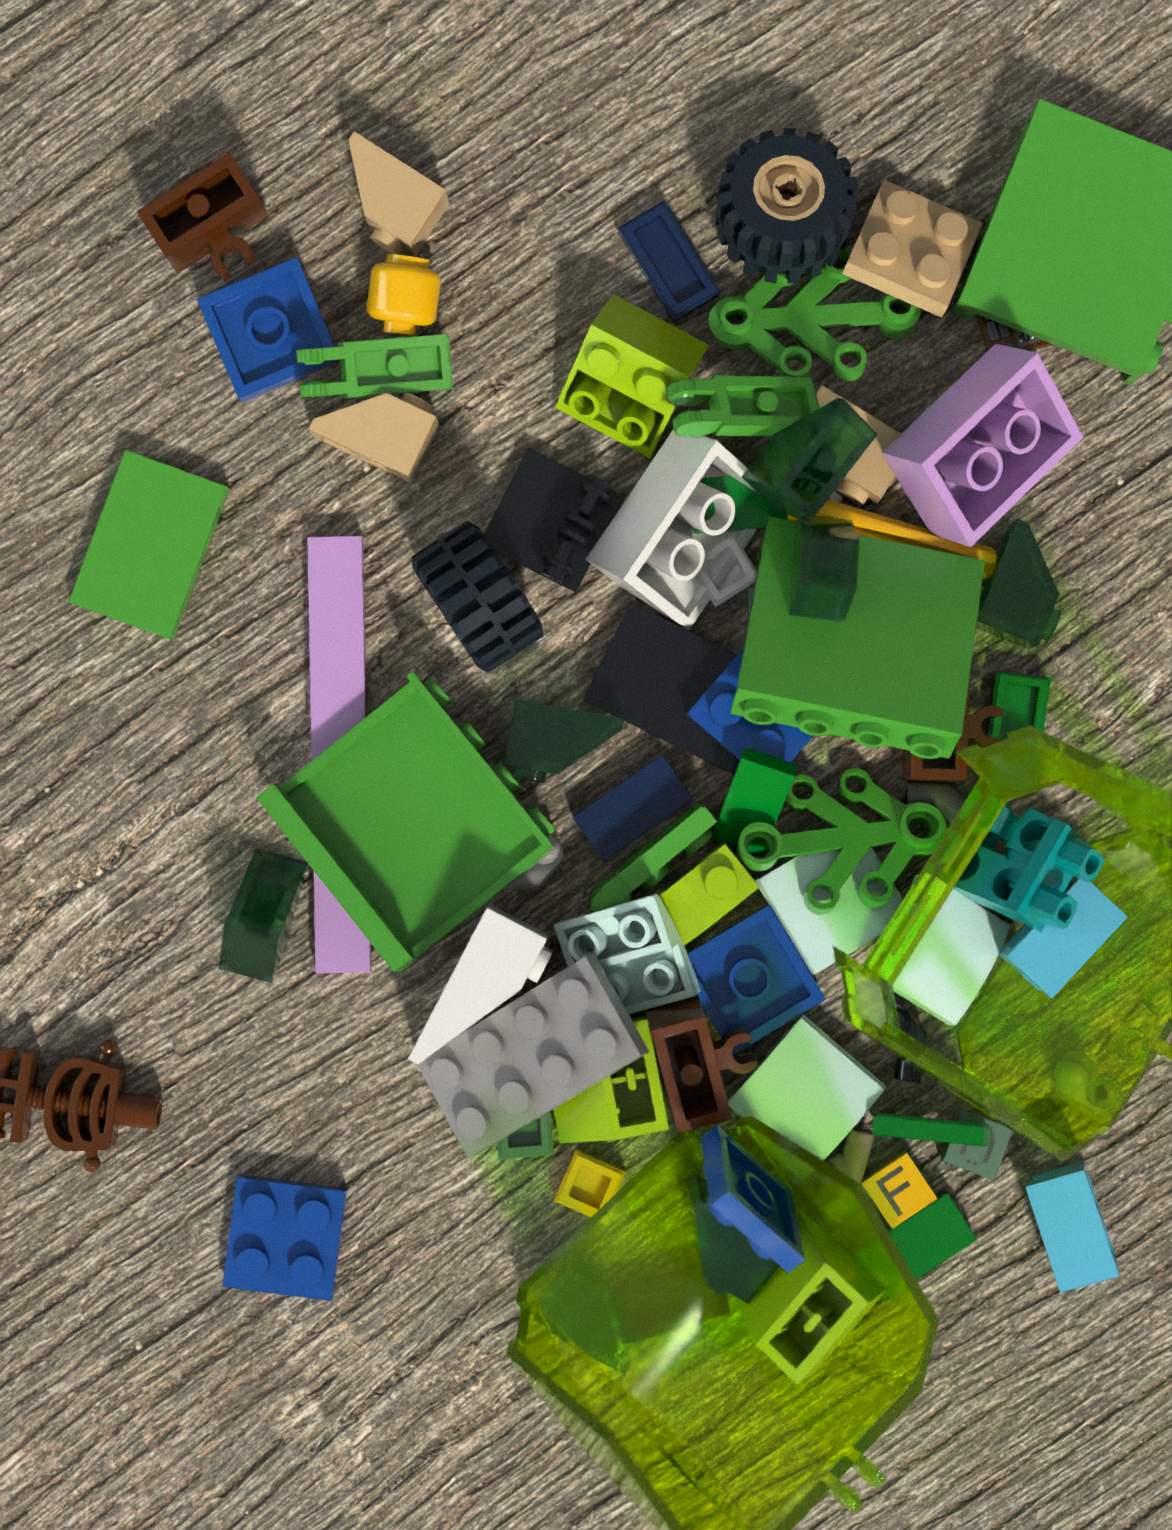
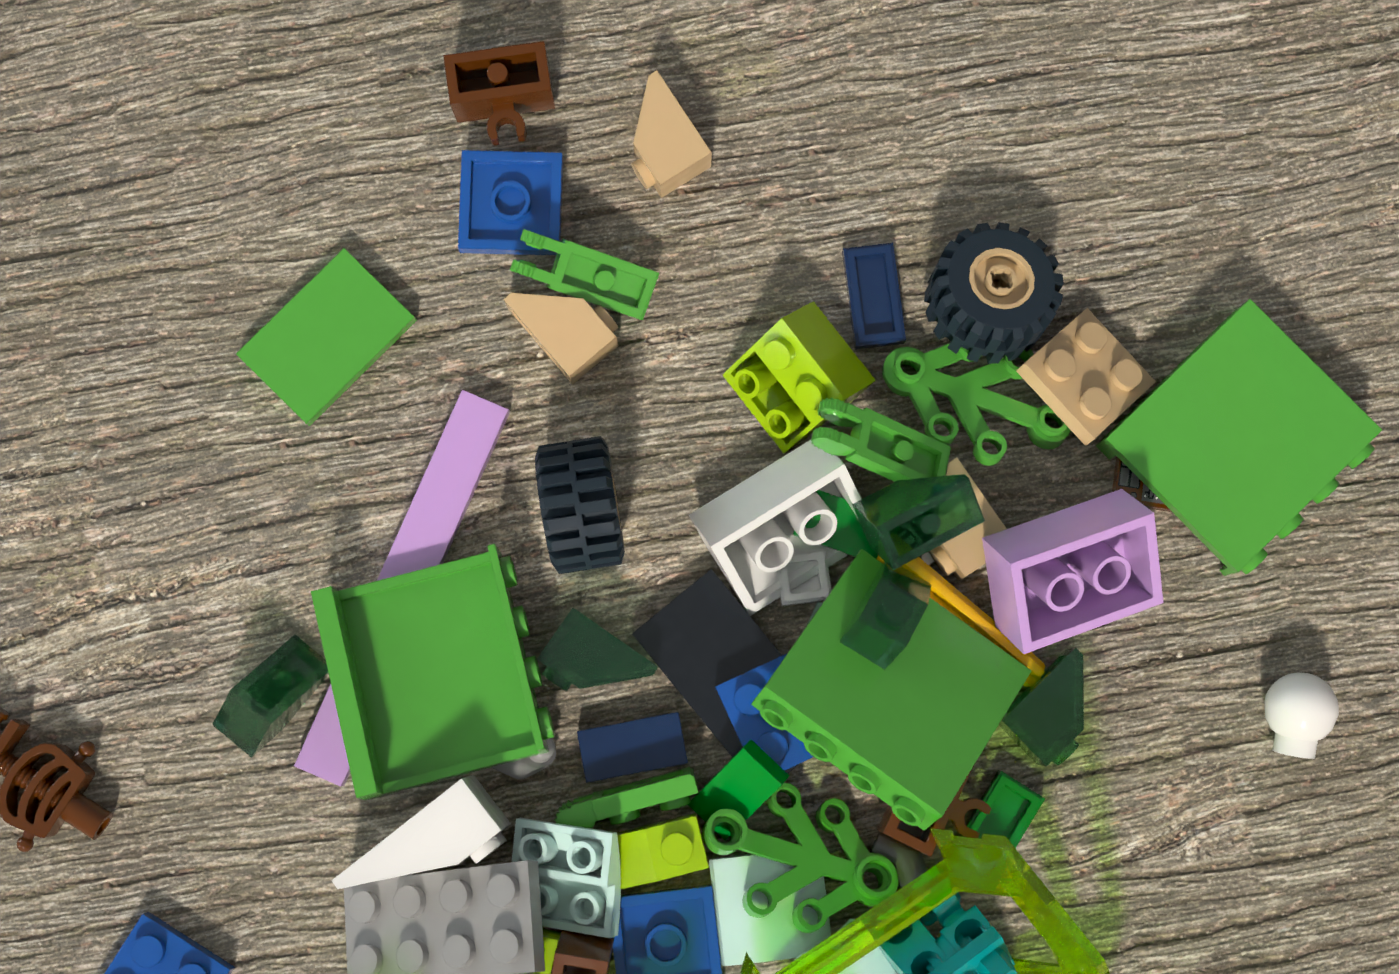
camera: 20 degrees right, 5 degrees down
(403, 294) = (637, 223): yellow head -> none
(552, 519) = (676, 467): black hinge -> none

